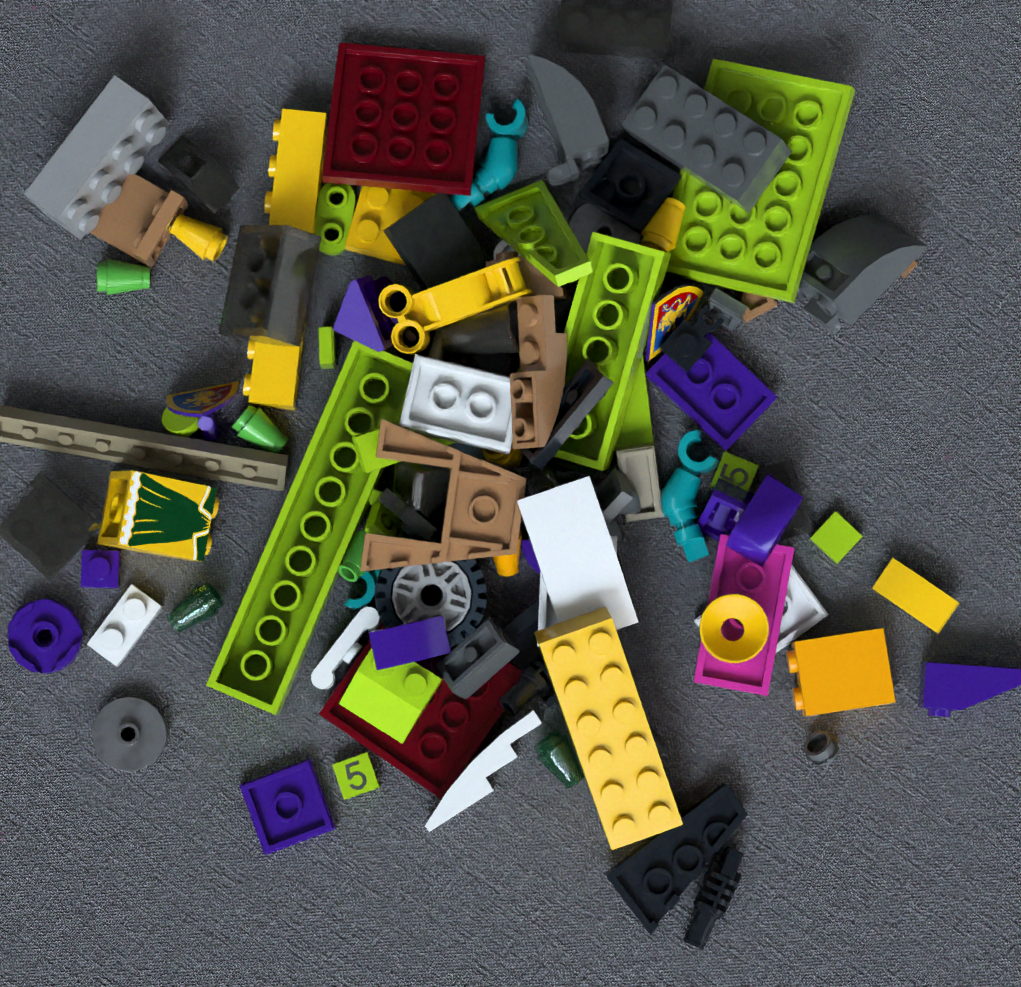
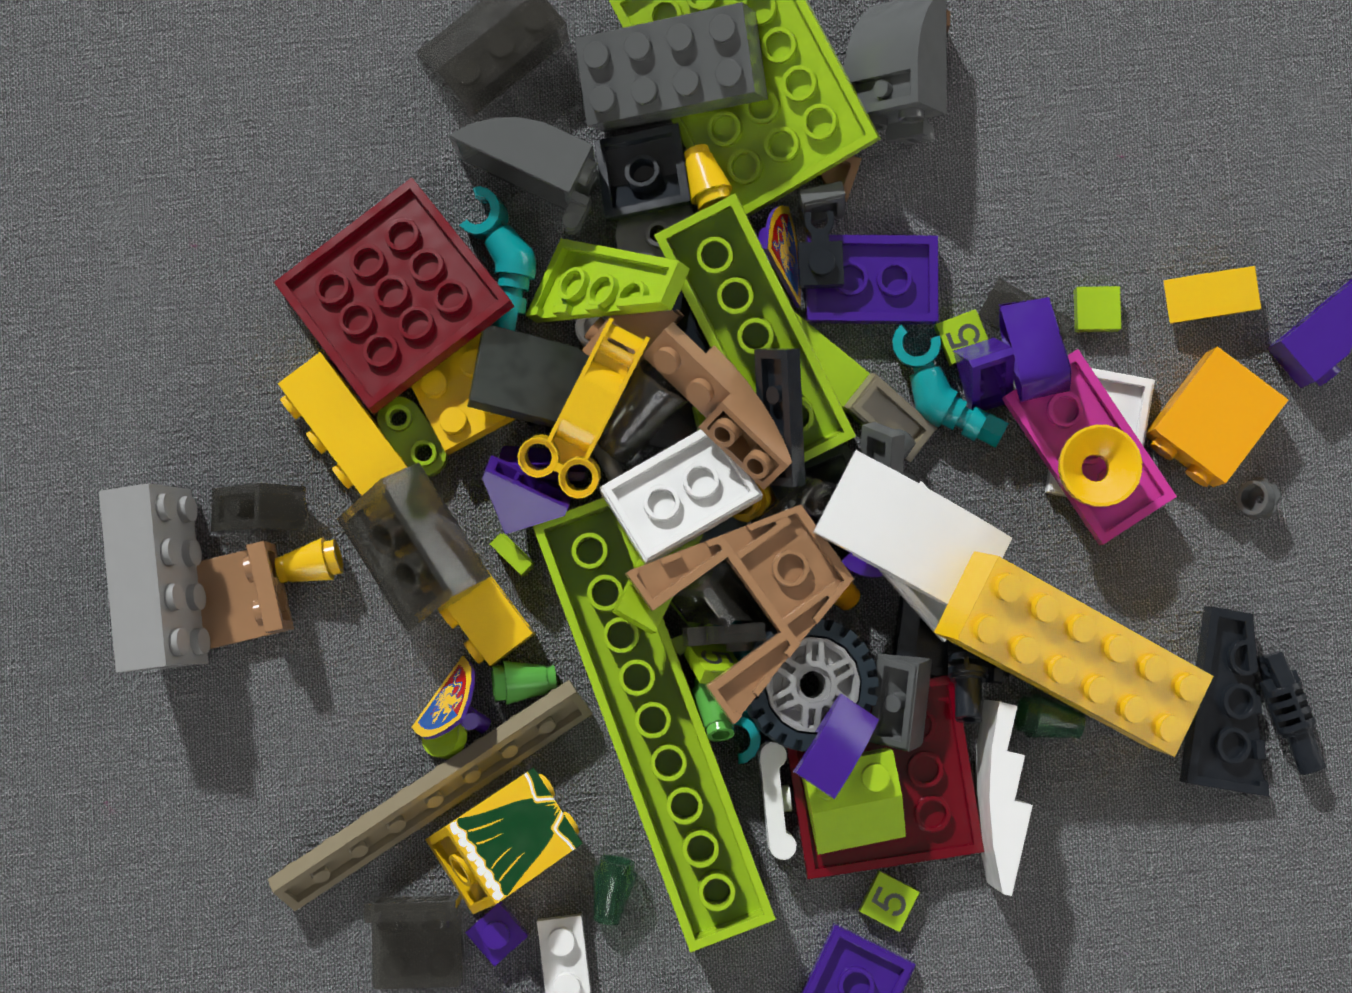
camera: 45 degrees left, 0 degrees up
(121, 277) = (274, 661): bright green cone -> none

